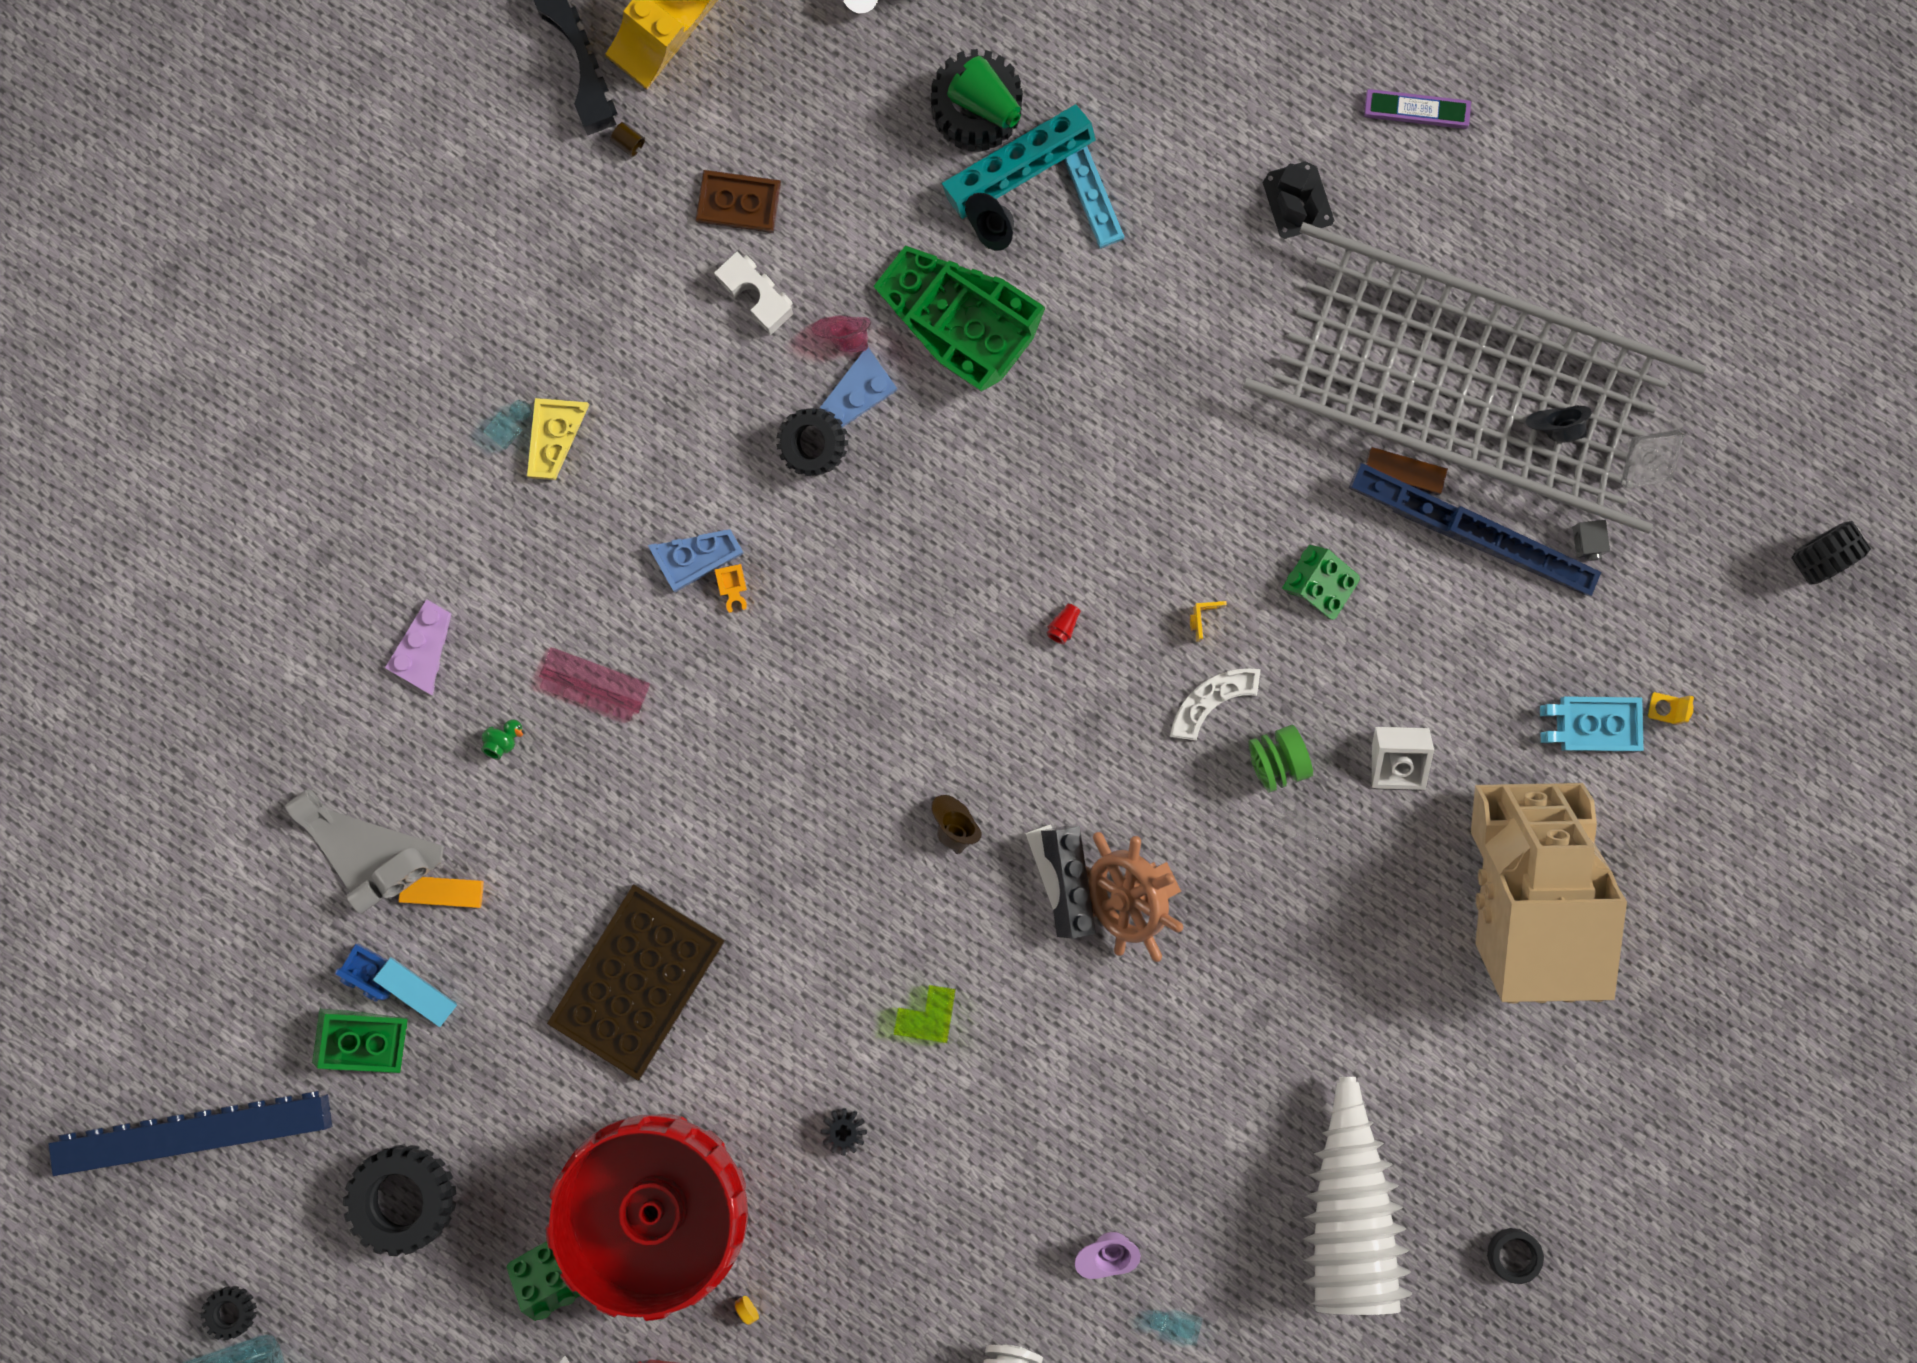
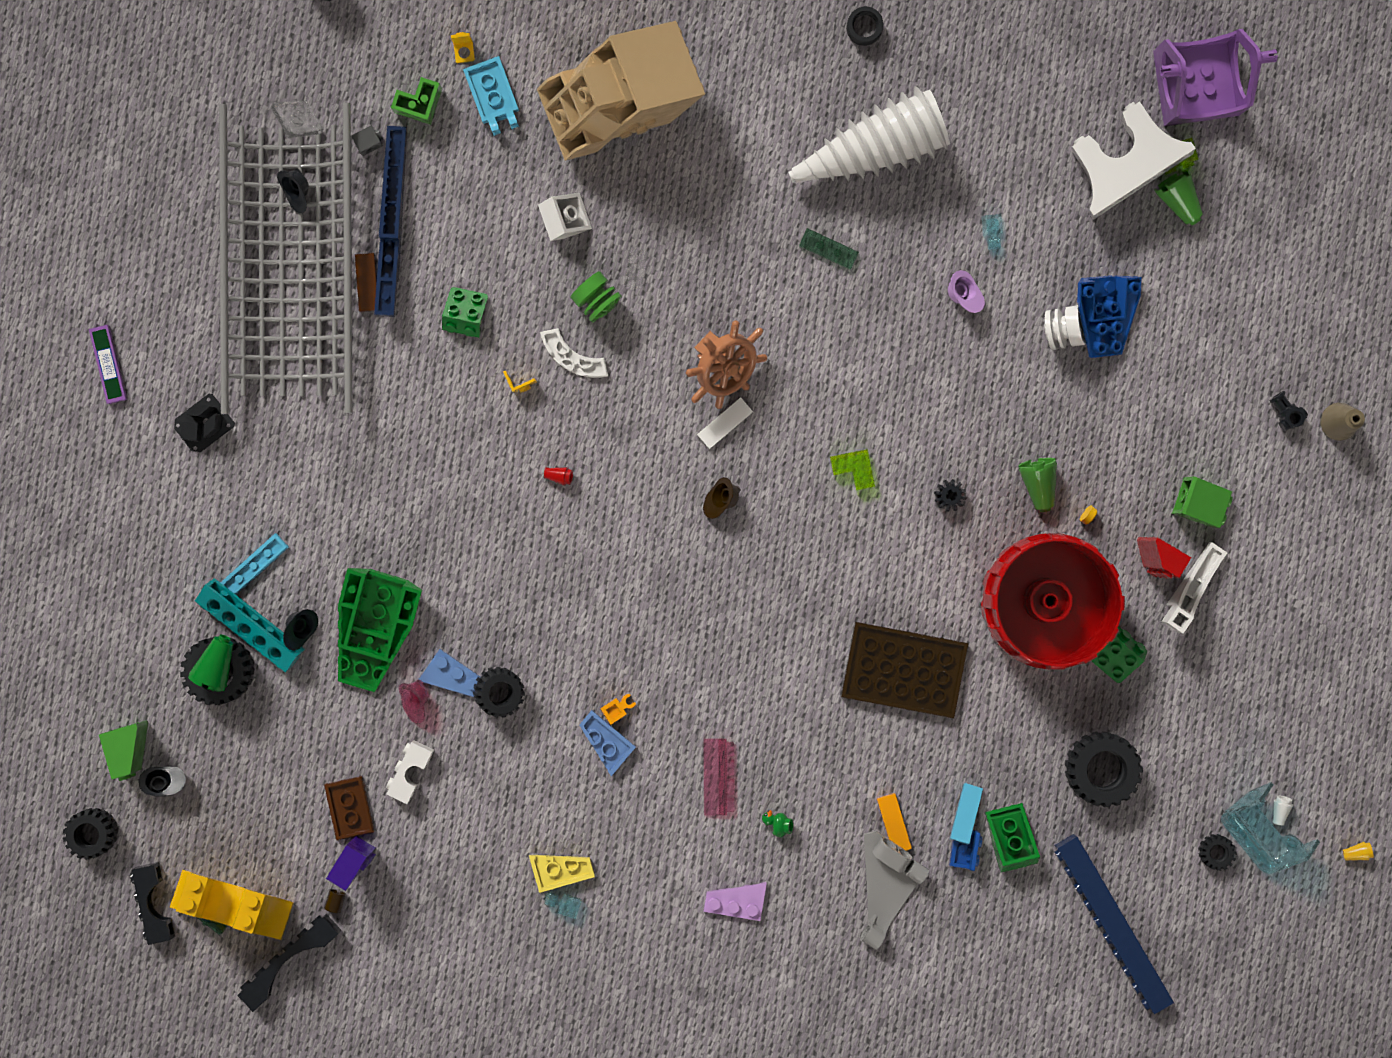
camera: 110 degrees left, 5 degrees up
(667, 174) = (353, 859): none -> dark purple wedge
(815, 1261) = (1040, 482): none -> bright green cone
(1074, 910) = (748, 397): black arch -> none
(1232, 1092) = (828, 249): none -> clear green tile
(1613, 623) = (421, 105): none -> bright green brick

